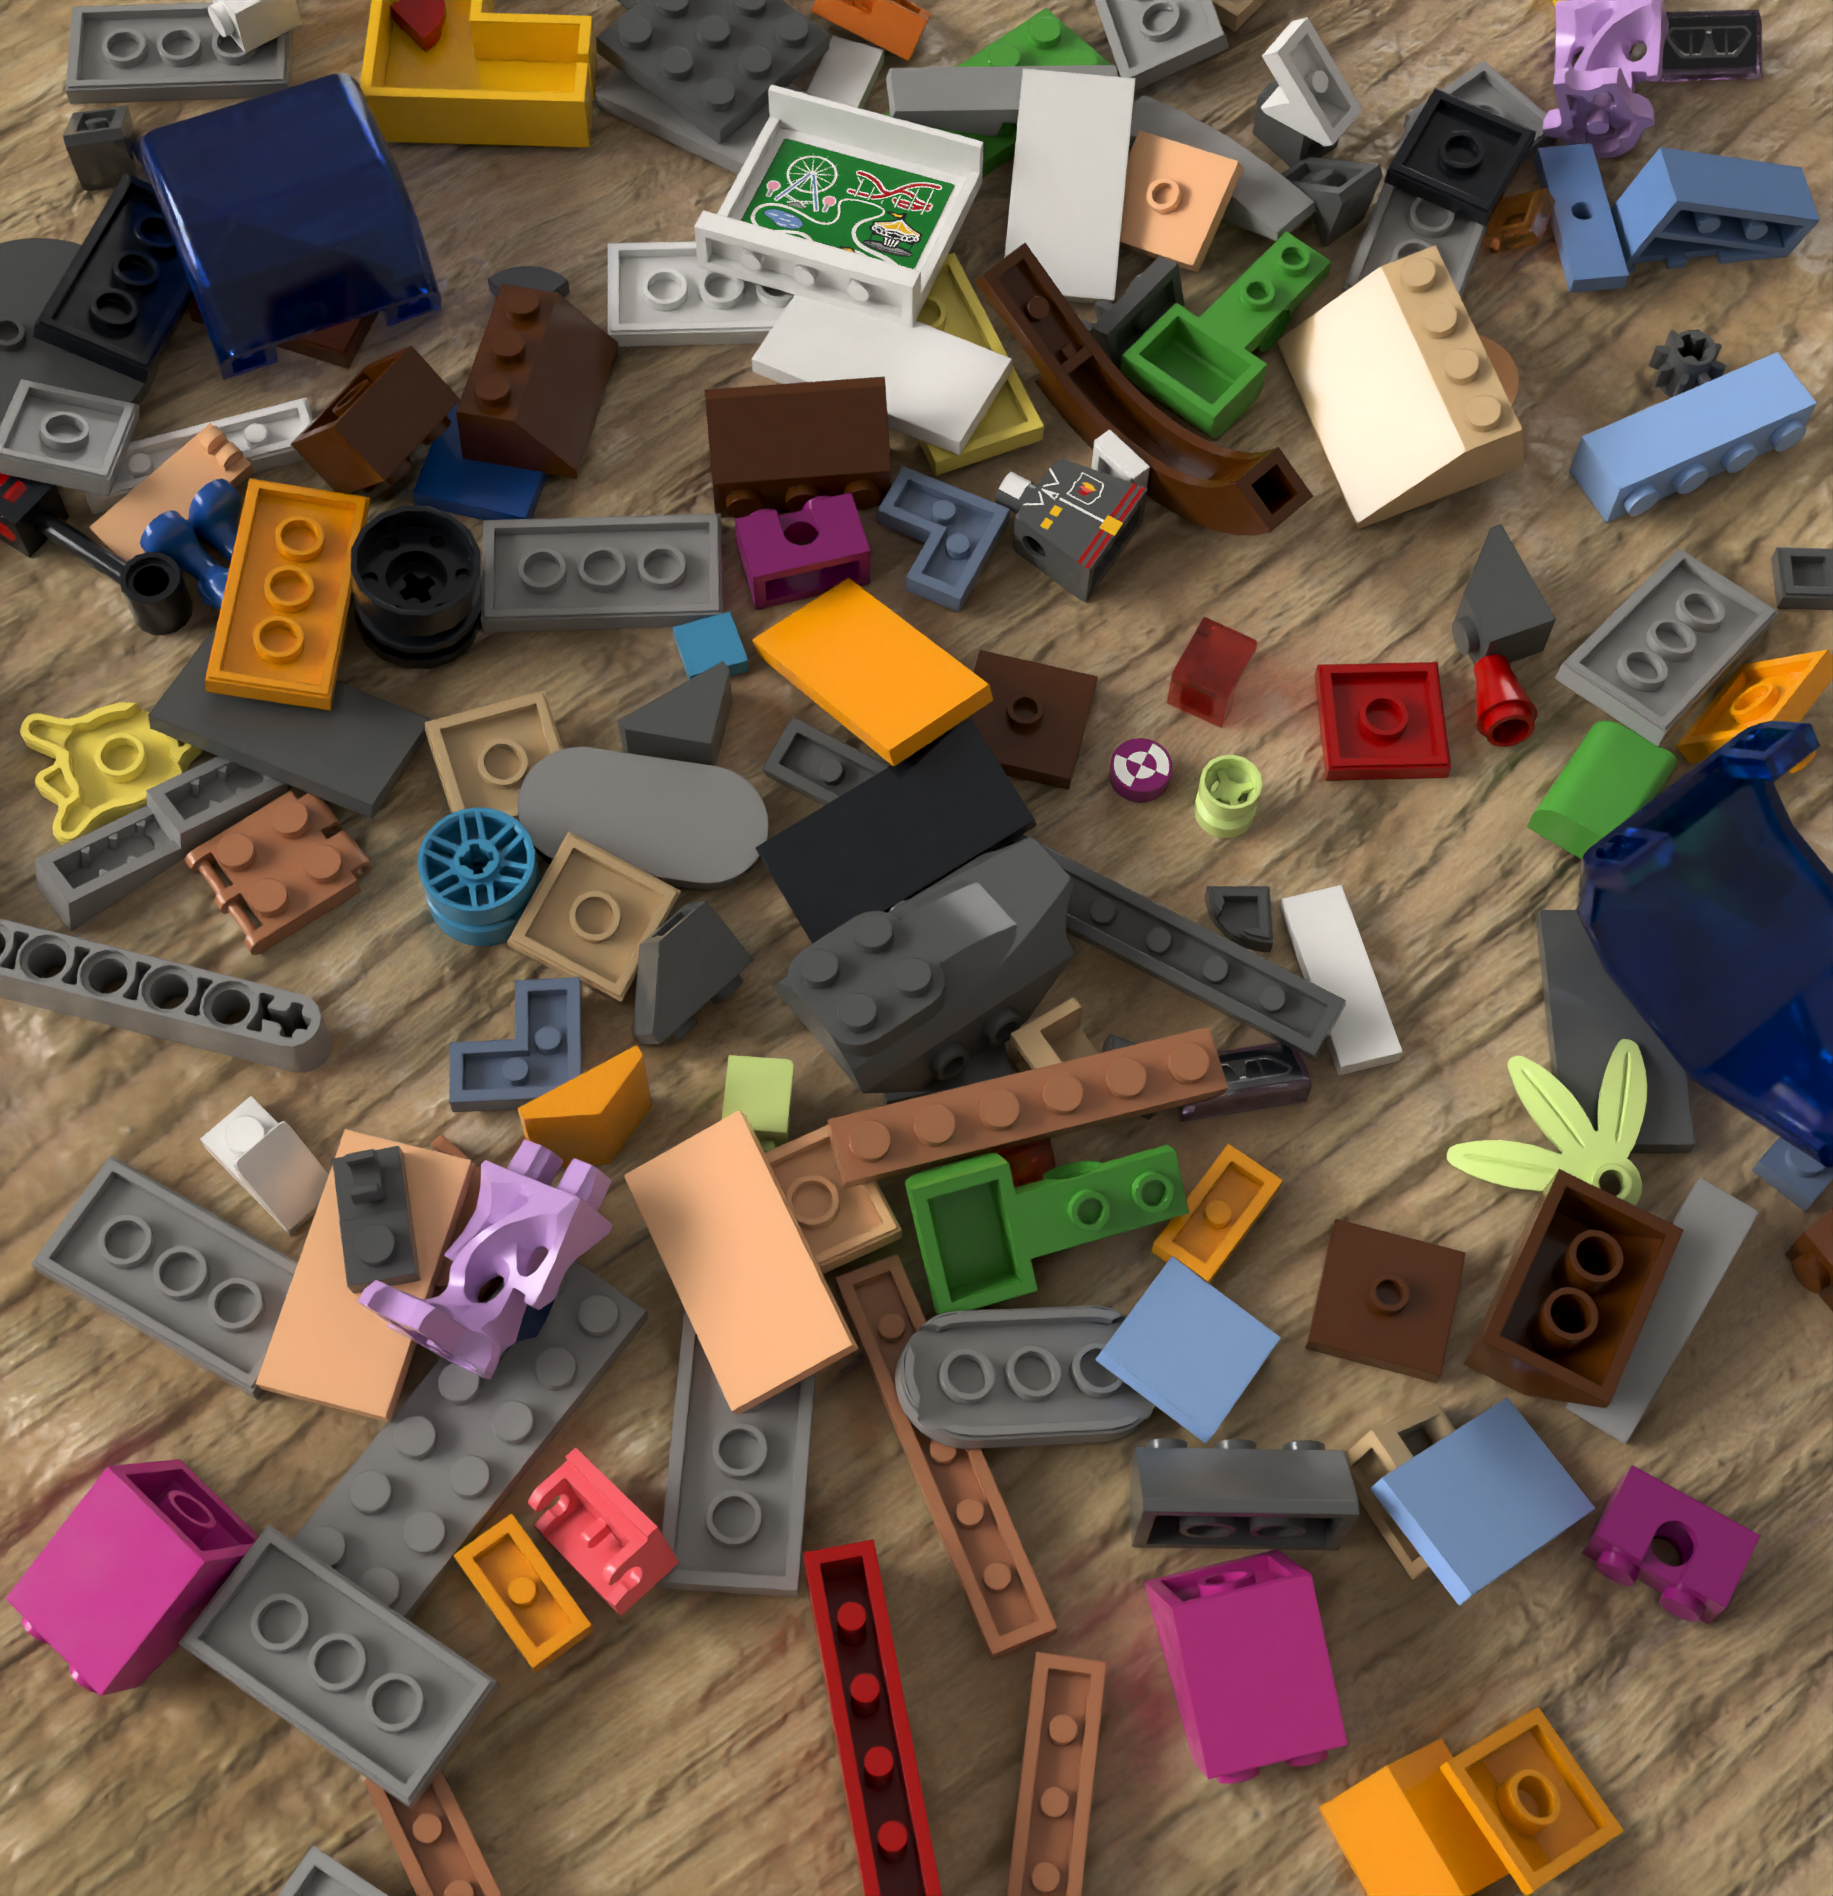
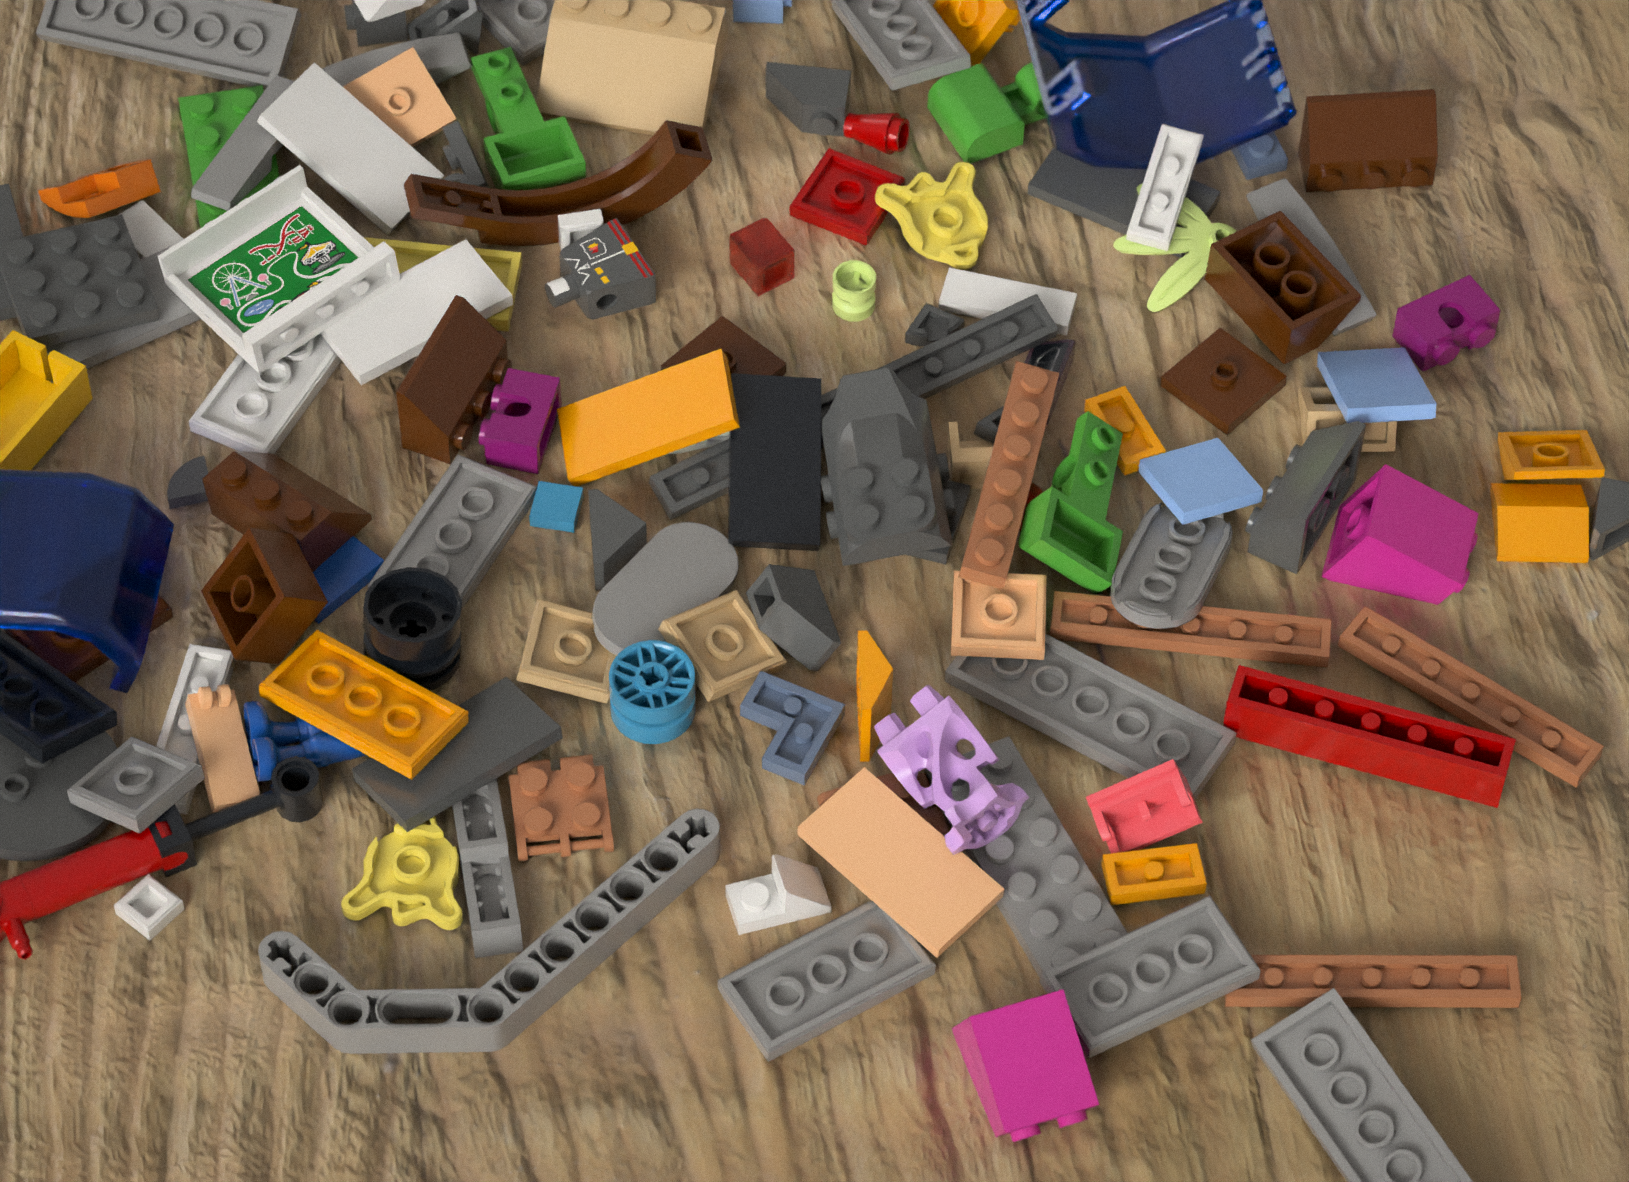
camera: 60 degrees left, 10 degrees down
(375, 1218) = (874, 831): dark grey plate -> none
(740, 1263) = (1020, 659): light nougat tile -> none
(763, 1093) = (910, 618): yellowish green panel -> none
(956, 530) = (564, 335): sand blue plate -> none
(1140, 770) = (800, 328): magenta tile -> none
(1417, 837) = (938, 217): none -> light yellow tile
(1630, 1068) = (1164, 187): none -> white tile

